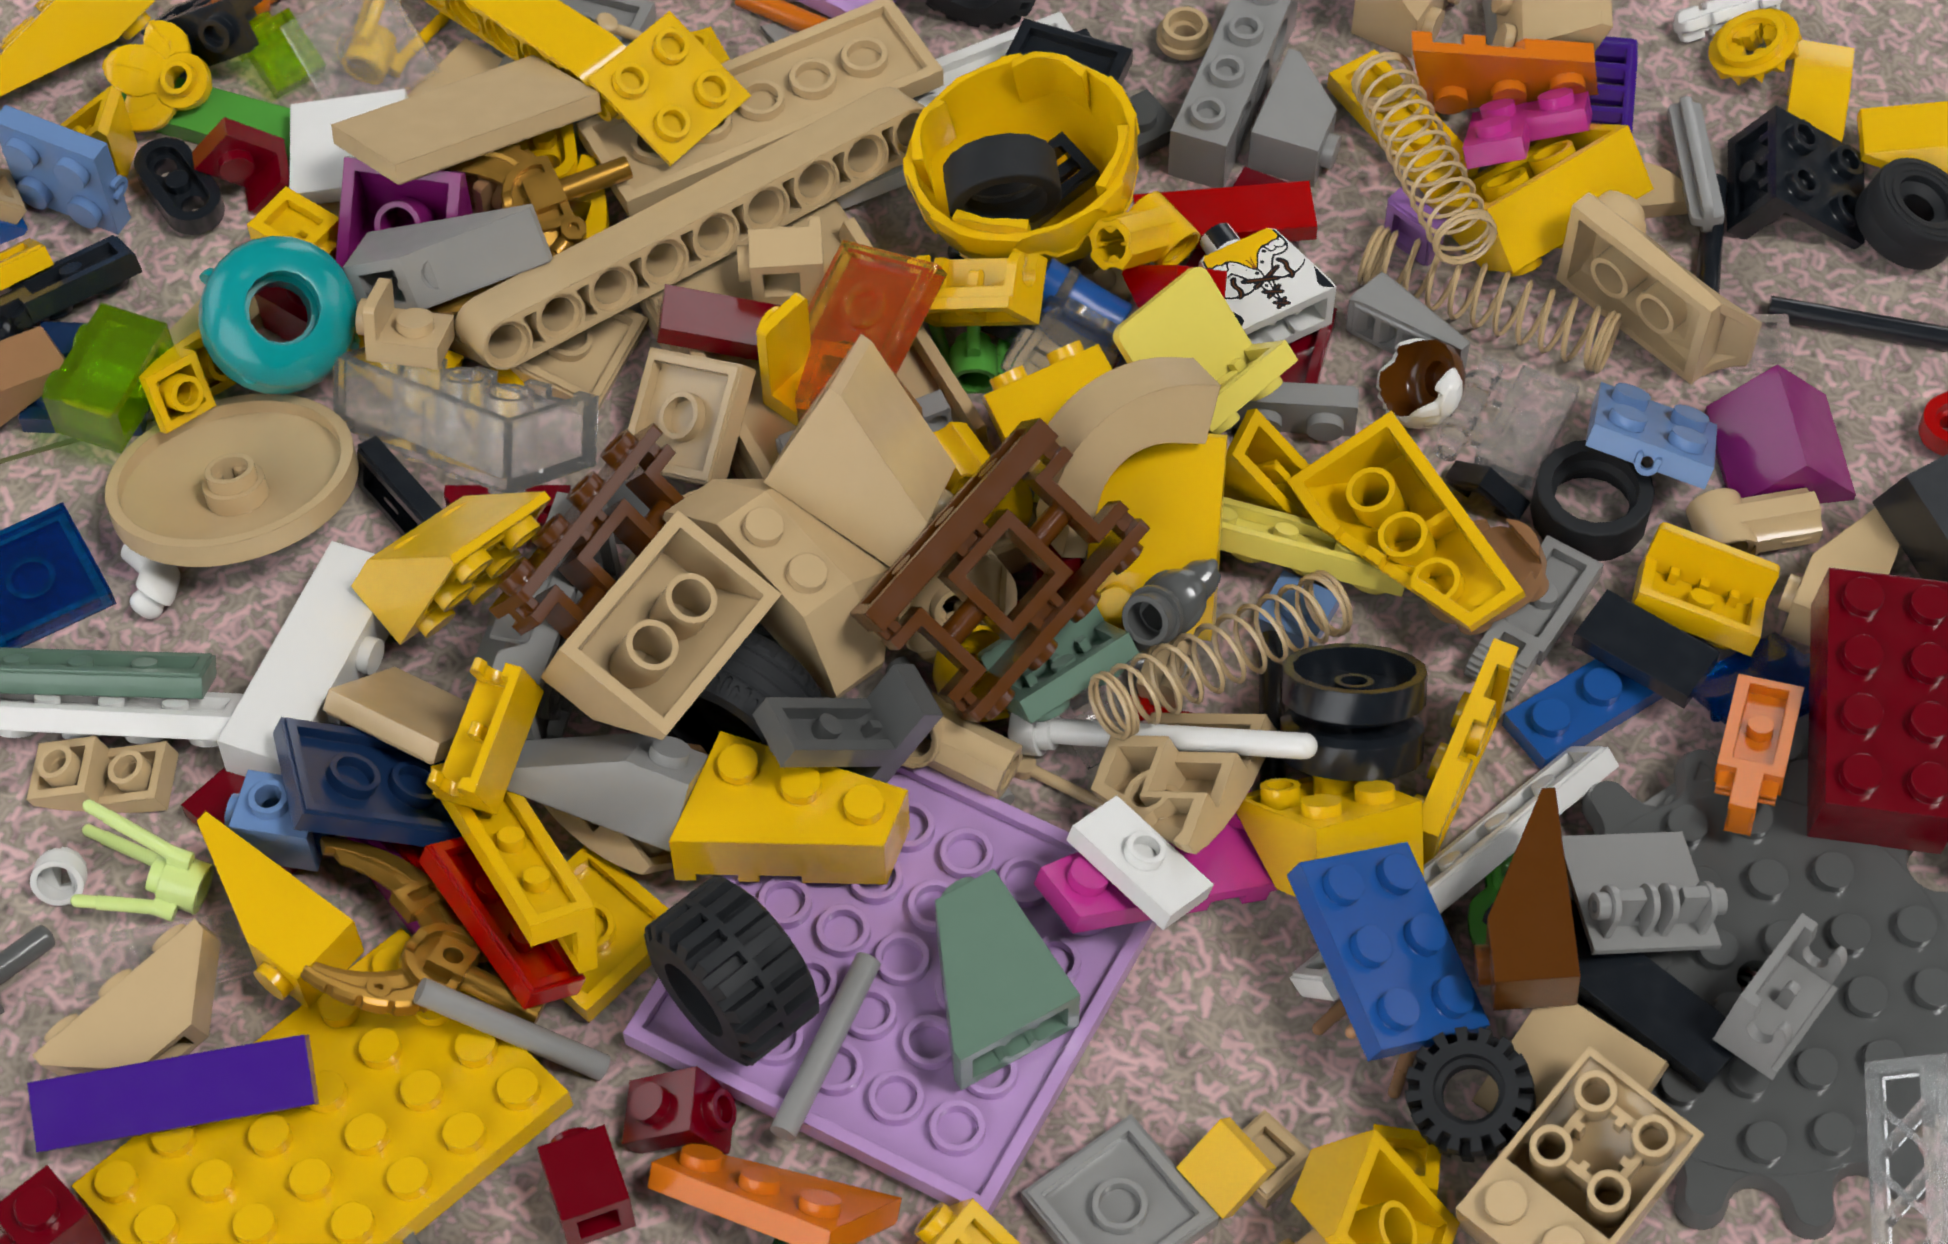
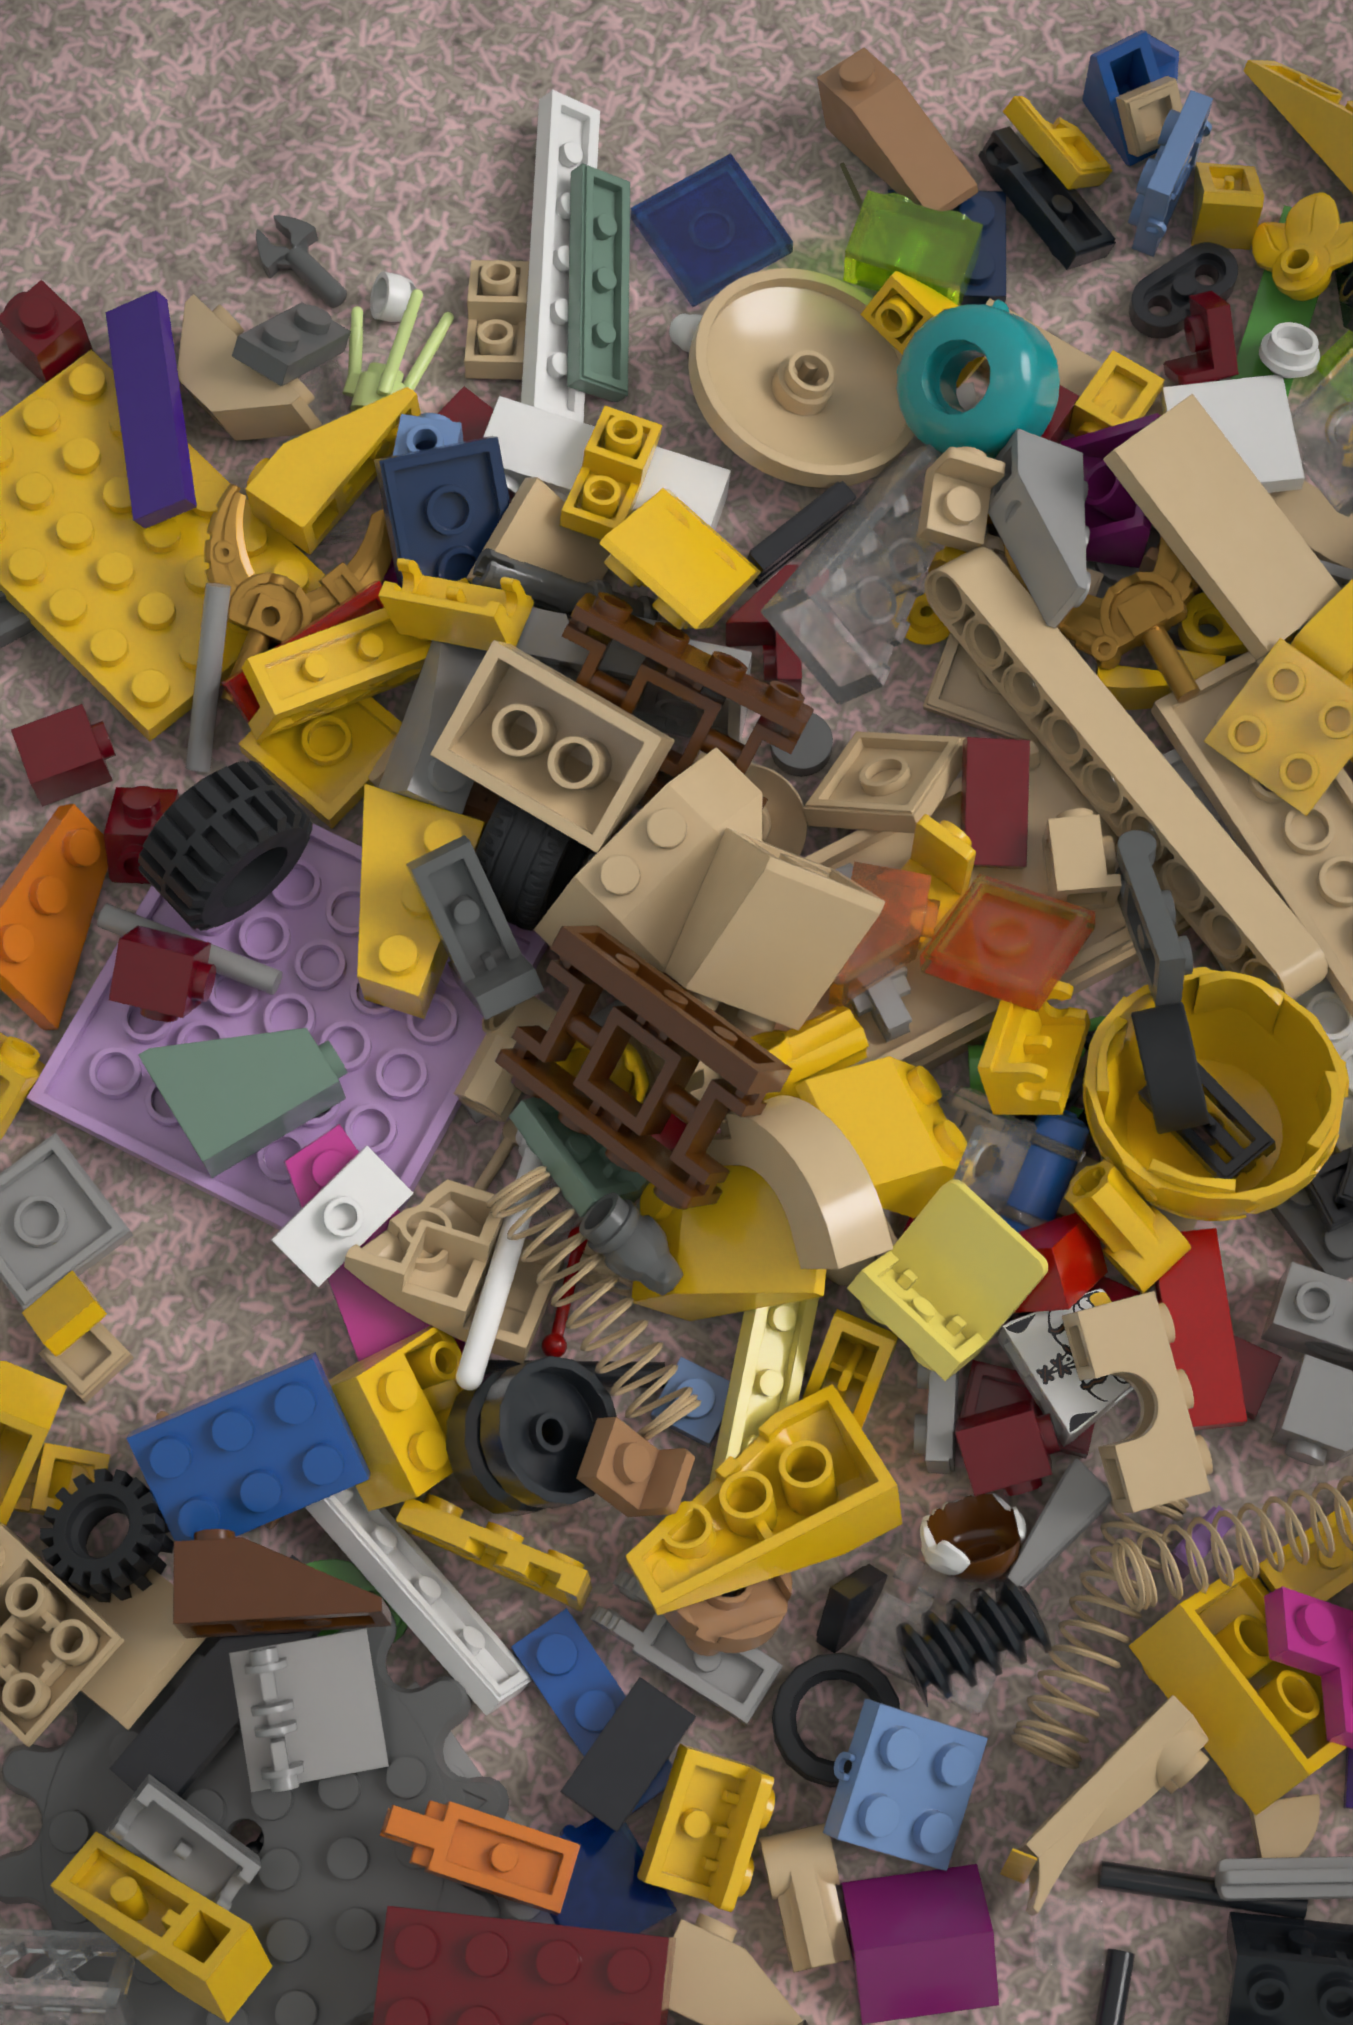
camera: 90 degrees right, 15 degrees up
(118, 942) = (291, 343): none -> dark grey plate
(267, 96) = (1290, 350): none -> white plate
(321, 633) = (610, 473): none -> yellow slope
(453, 689) = (547, 588): none -> dark grey pin
(859, 189) = (1151, 919): none -> dark grey plate
(862, 1053) = (162, 973): none -> dark red brick
(1341, 348) = (1007, 1448): none -> dark red brick
(1353, 213) = (1162, 1454): none -> tan arch
(1388, 616) = (633, 1471): none -> medium nougat bracket
(1524, 372) = (971, 1638): none -> black piece
(1716, 348) = (1018, 1866): none -> yellow piece
(1858, 1017) = (165, 1925): none -> yellow slope

